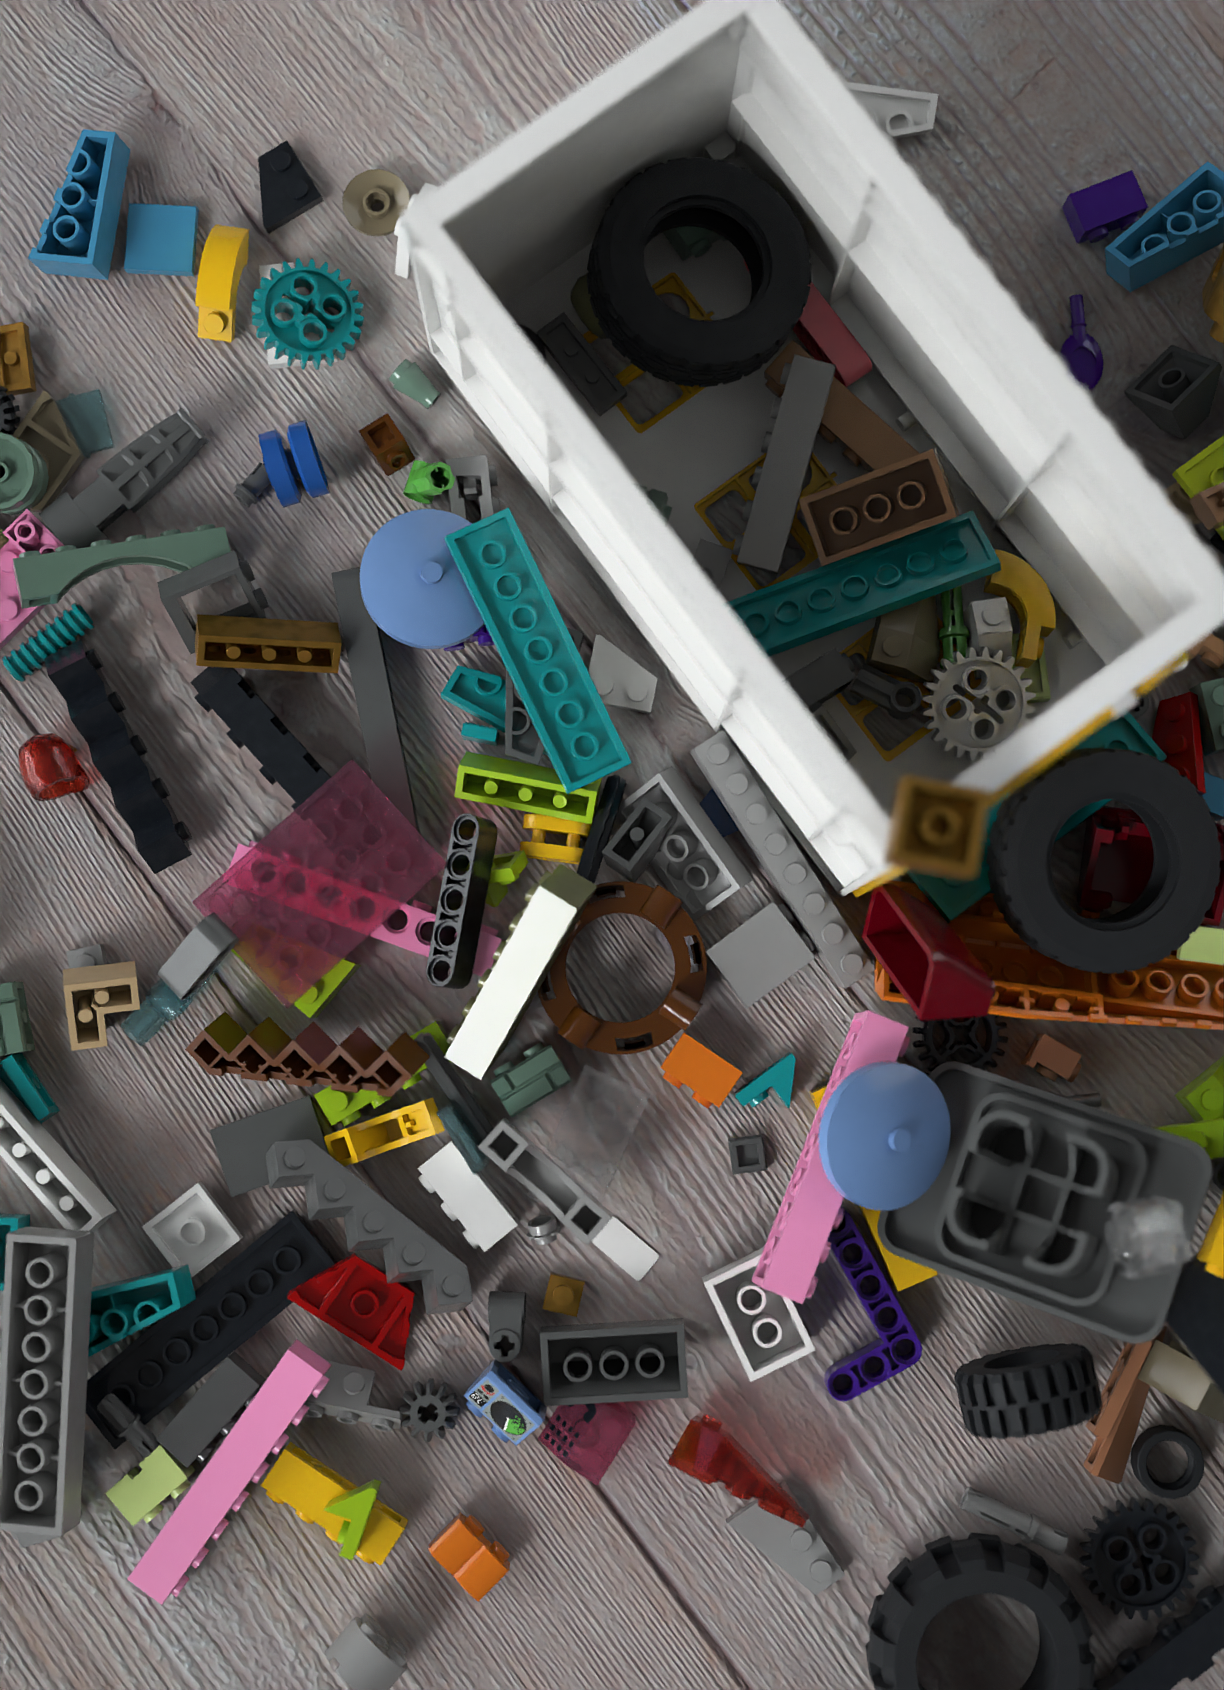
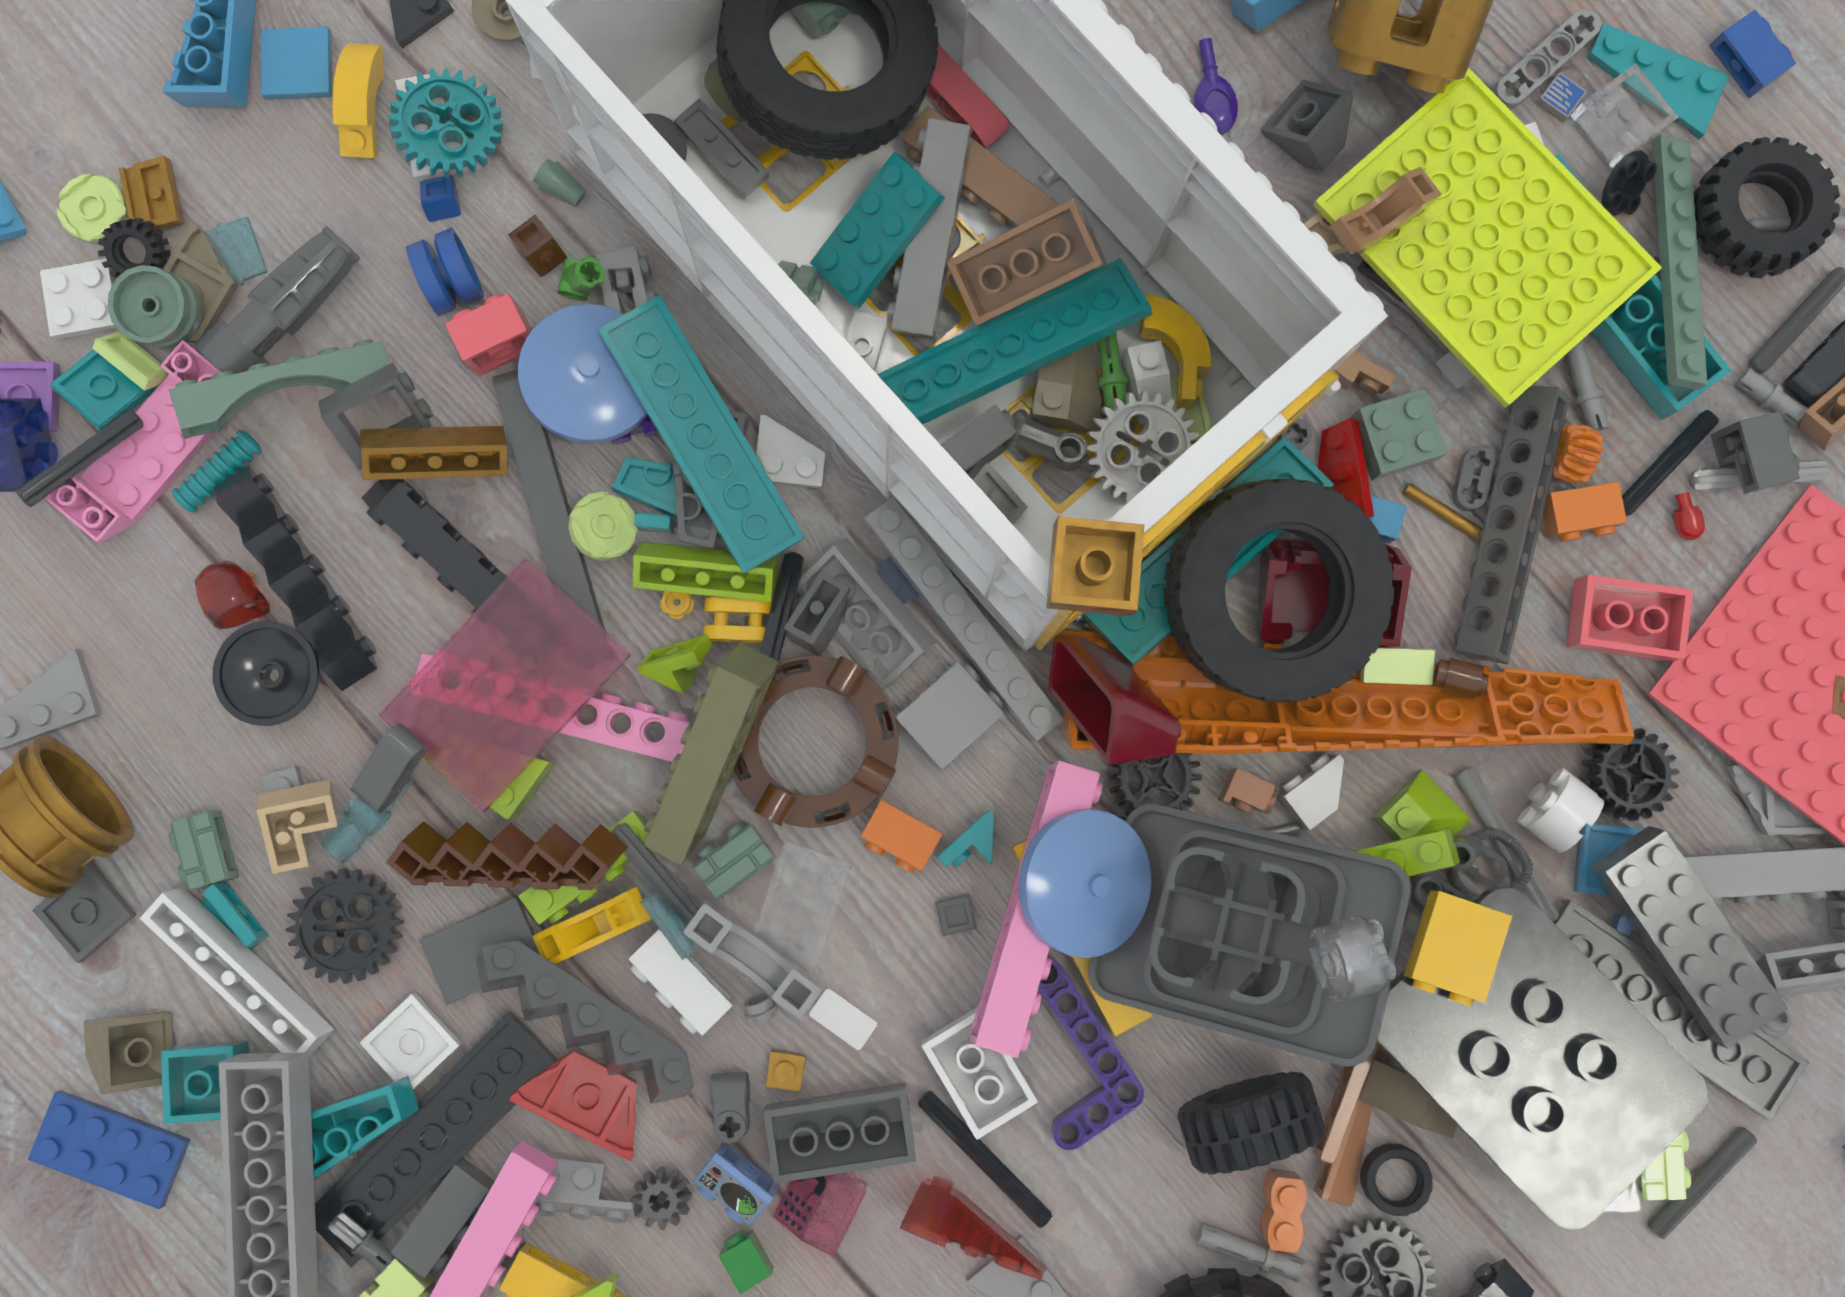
camera: 10 degrees left, 0 degrees up
(58, 847) = (245, 667): none -> black dish
(136, 1139) = (343, 894): none -> black gear
(252, 486) = (406, 299): dark grey pin -> none
(293, 388) = (440, 198): none -> blue slope
(334, 529) = (490, 333): none -> coral brick
(428, 732) = (602, 526): none -> yellowish green tile
(463, 919) = (648, 690): black beam -> none
(505, 817) = (676, 612): none -> yellow plate
(507, 1480) = (745, 1260): none -> green brick
(731, 461) = (877, 230): none -> teal plate
(755, 1402) = (985, 1159): none -> black axle
(1047, 1490) = (1280, 1218): none -> orange brick
(1122, 1066) = (1316, 794): none -> white slope

